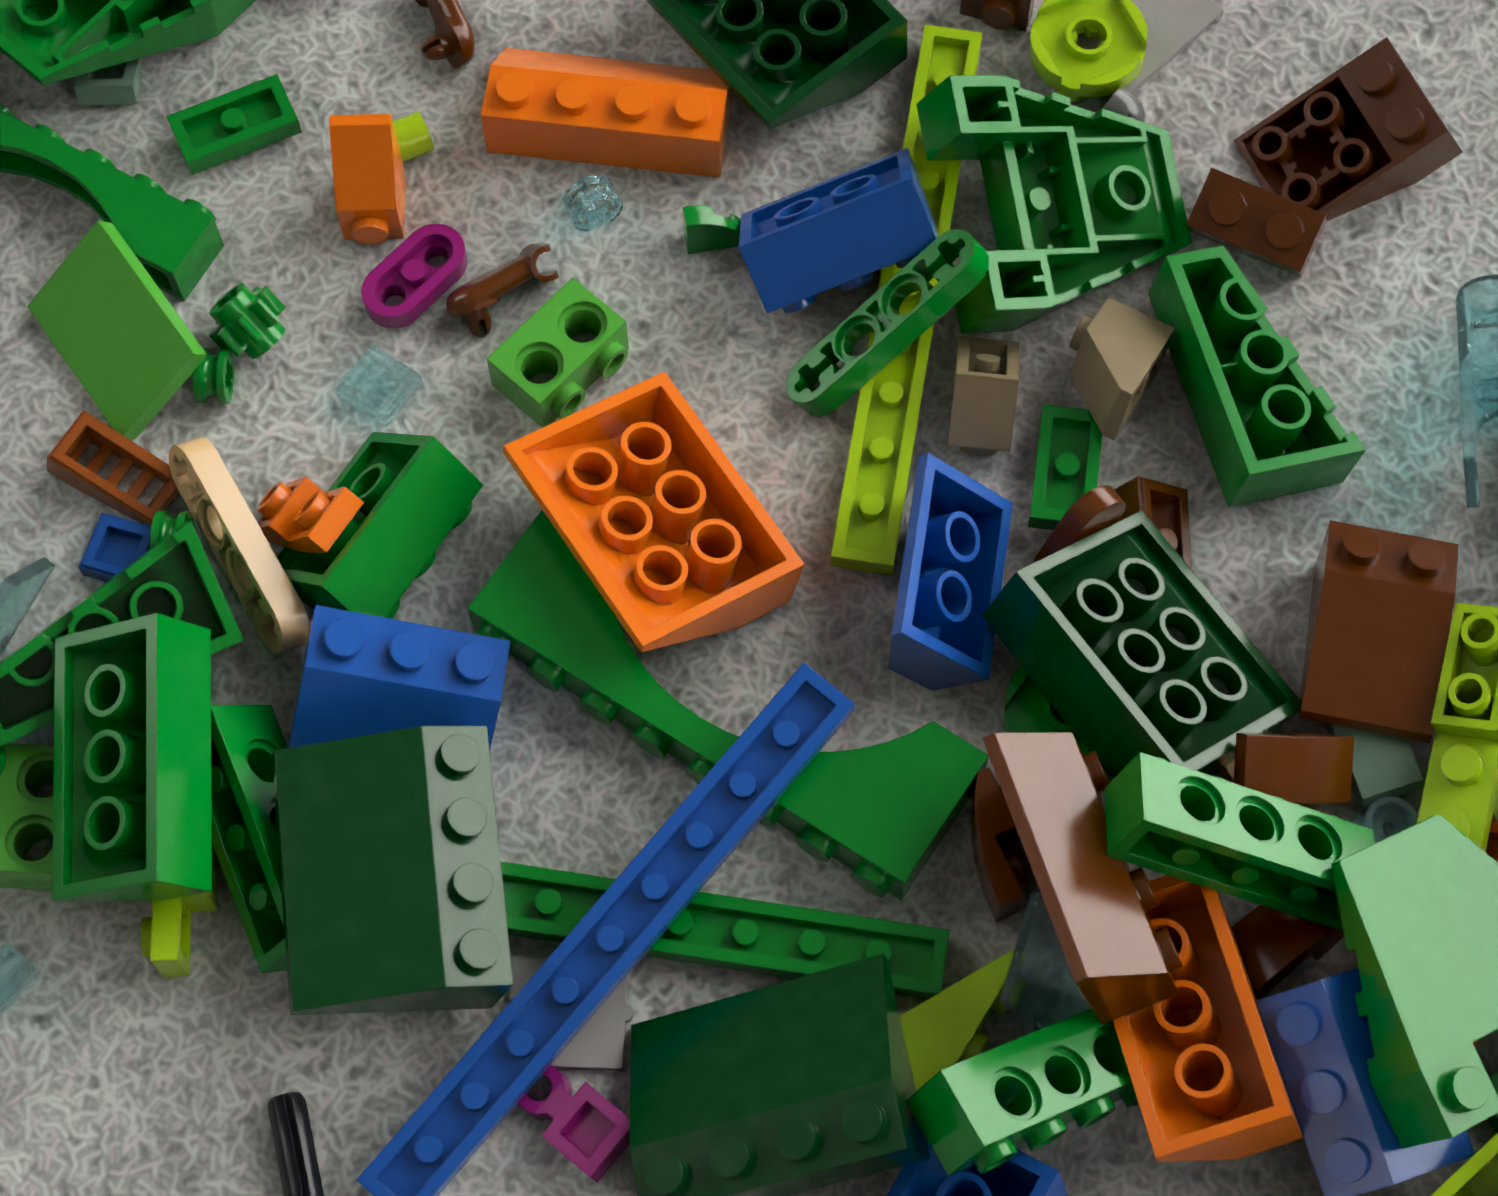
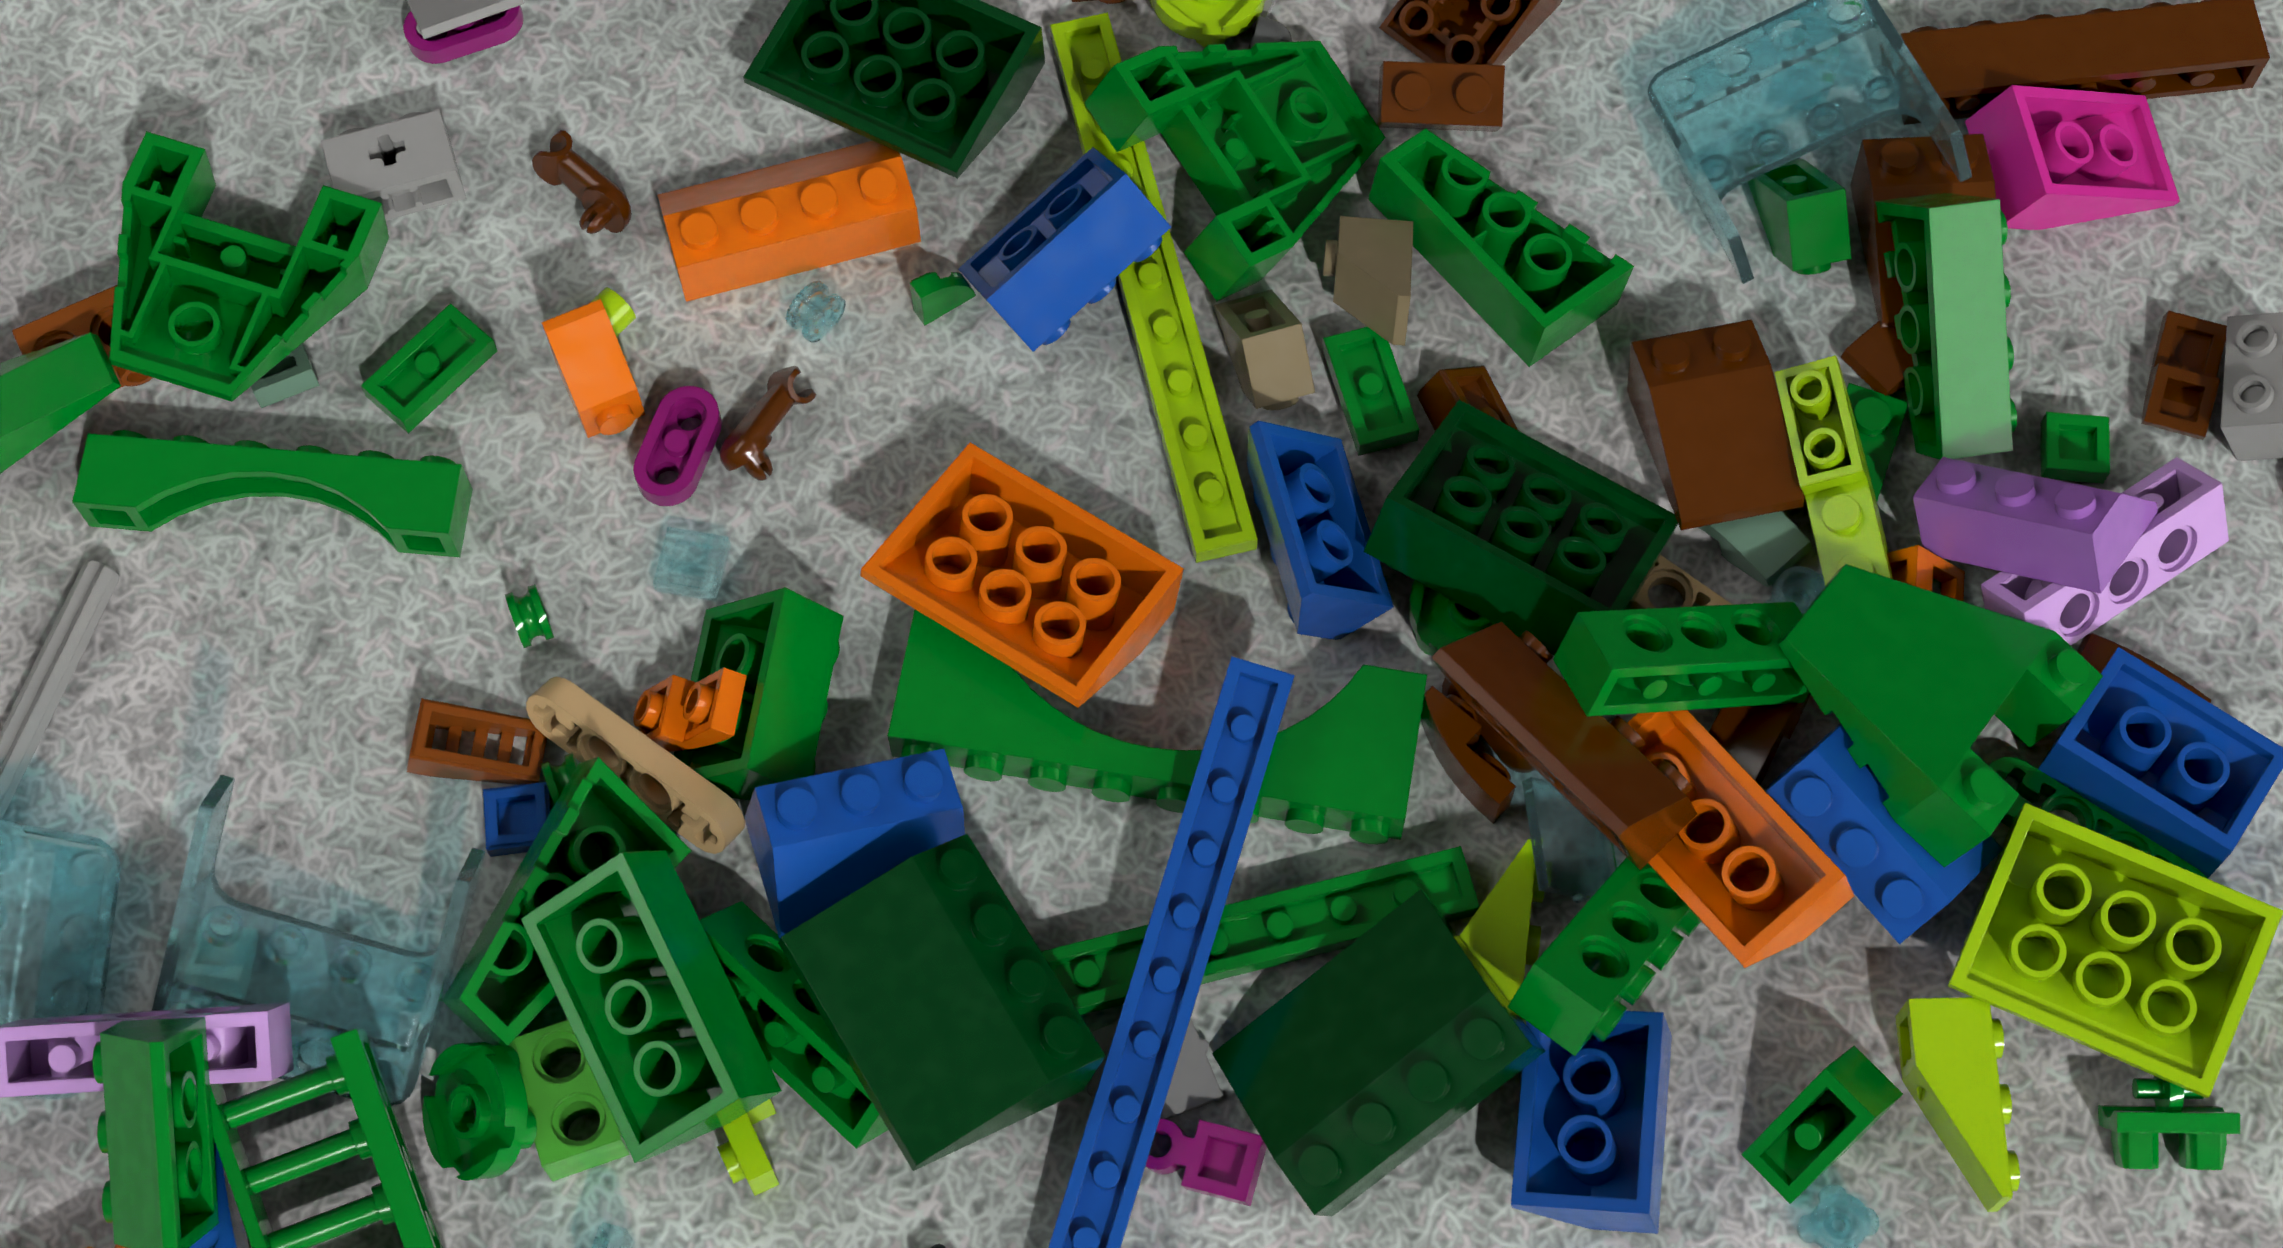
camera: 25 degrees left, 0 degrees up
(116, 330) = (415, 609): bright green tile -> none
(247, 320) = (539, 551): green gear -> none
(547, 346) = (842, 464): bright green brick -> none
(882, 316) = (1160, 322): green beam -> none
(1085, 517) = (1416, 428): reddish brown tile -> none
(1296, 766) = (1701, 572): reddish brown slope -> none

